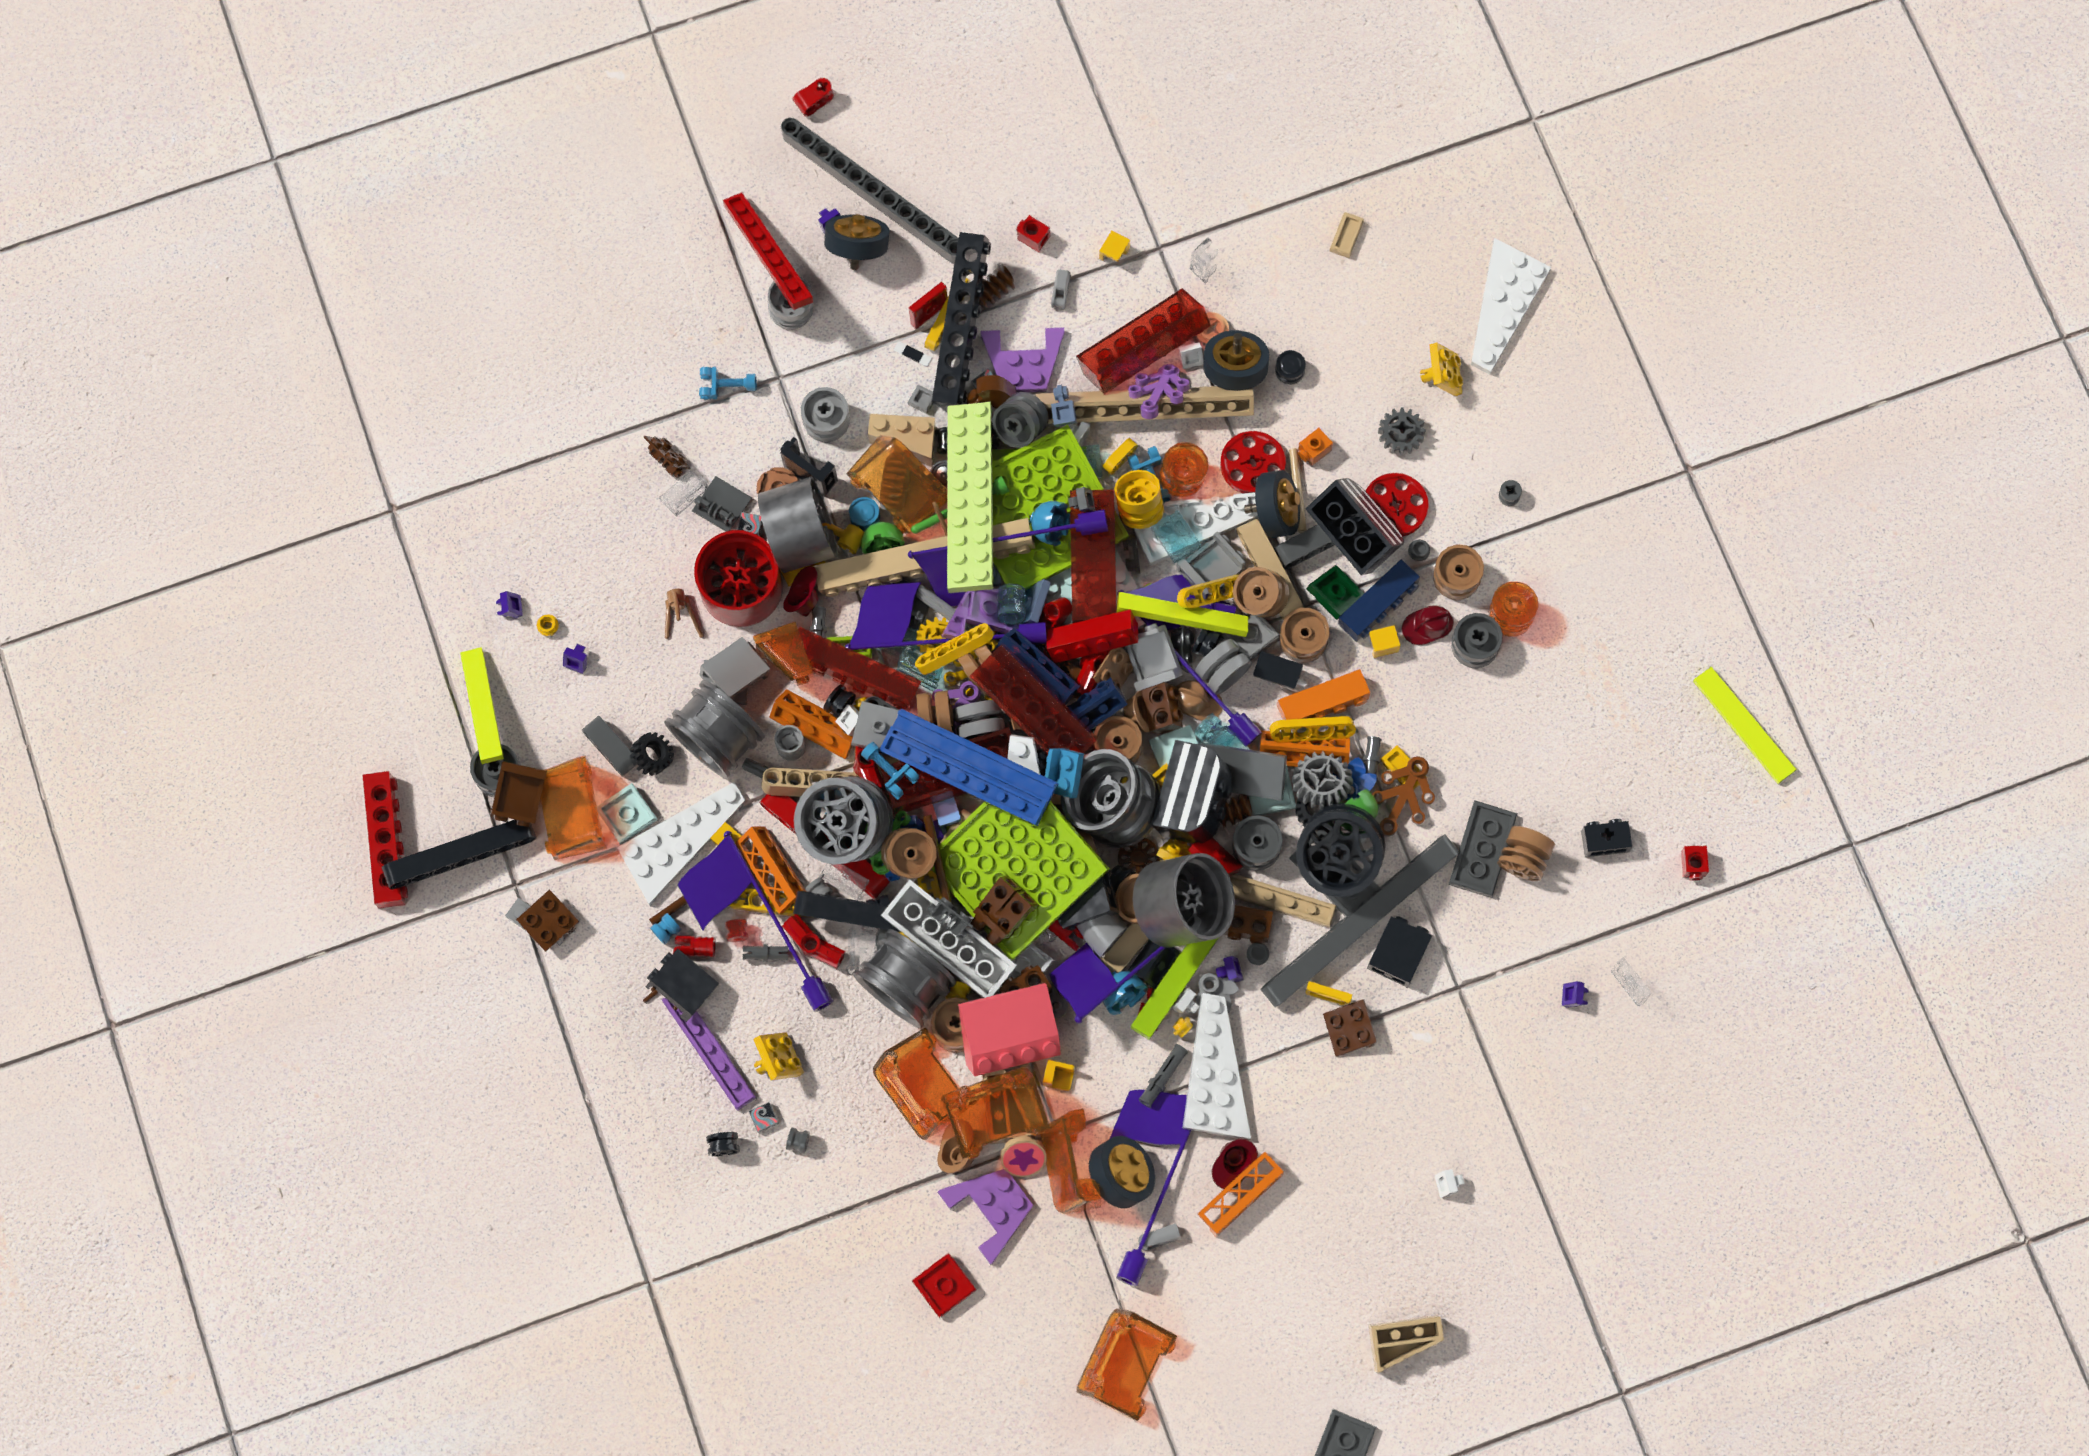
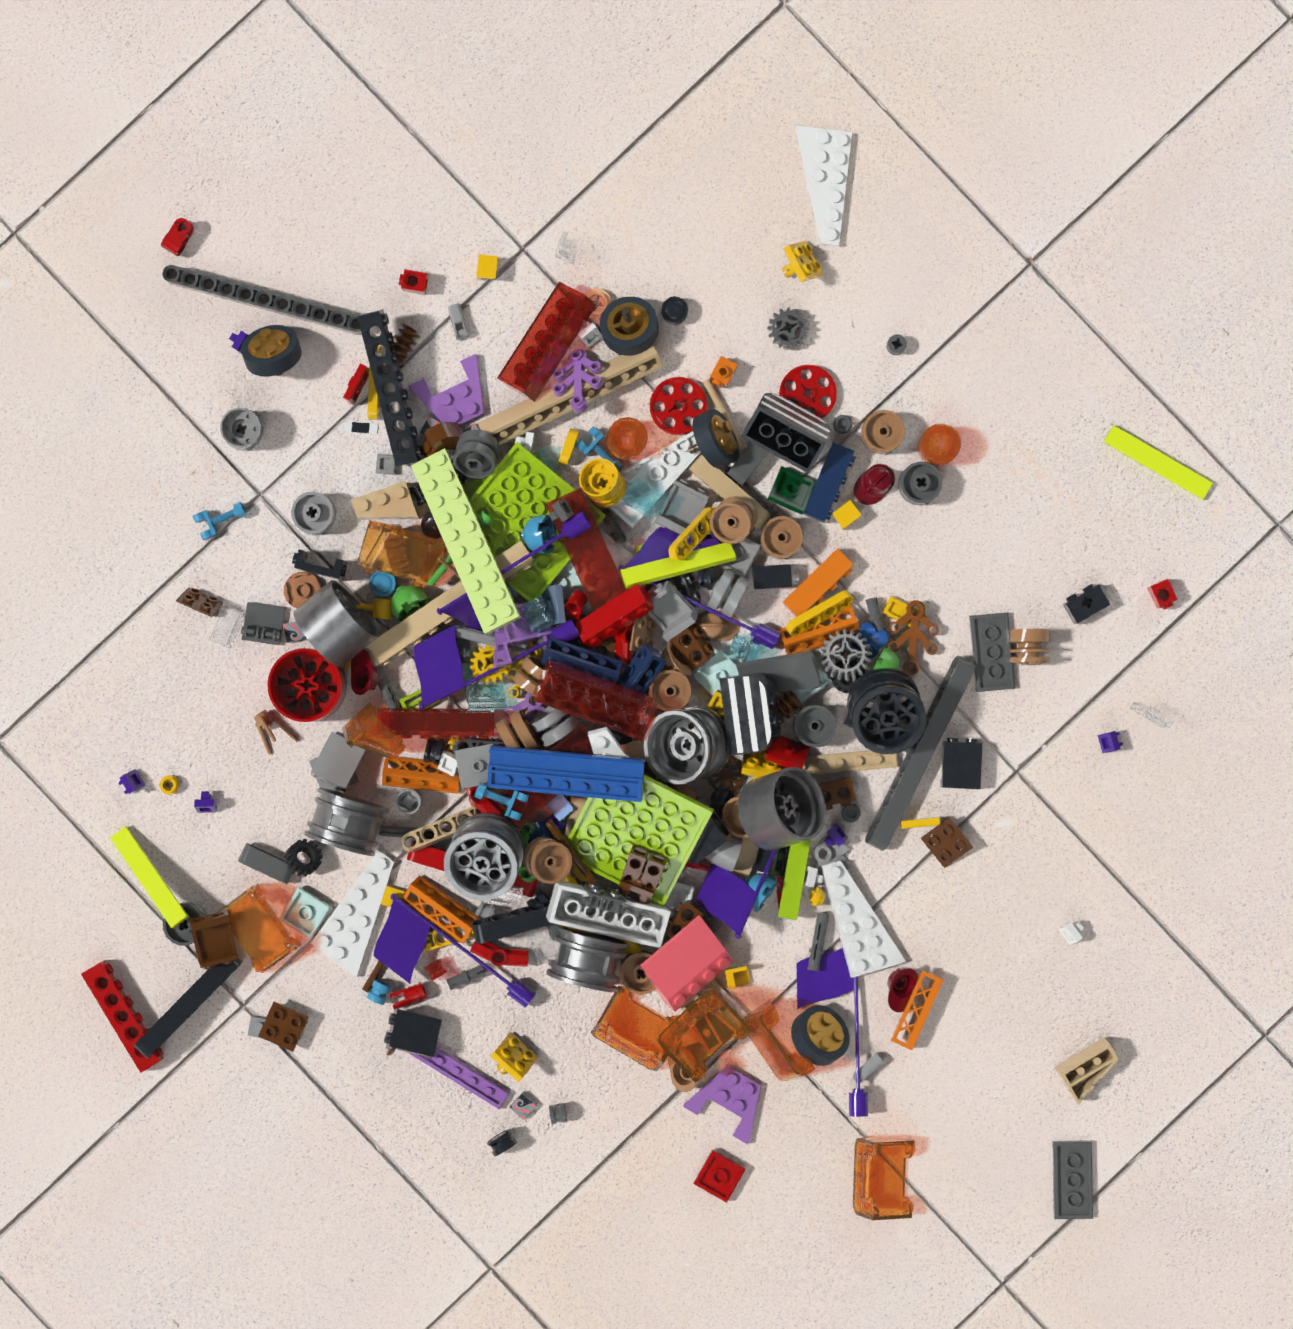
camera: 30 degrees left, 15 degrees up
(768, 251) = (204, 396): red plate -> none
(954, 649) = (524, 659): yellow beam -> none
(1023, 1156) = (738, 1053): tile -> none
(1064, 411) = (509, 433): sand blue plate -> none
(1064, 768) = (642, 743): dark azure bracket -> none
(1346, 235) = (672, 173): tan tile -> none

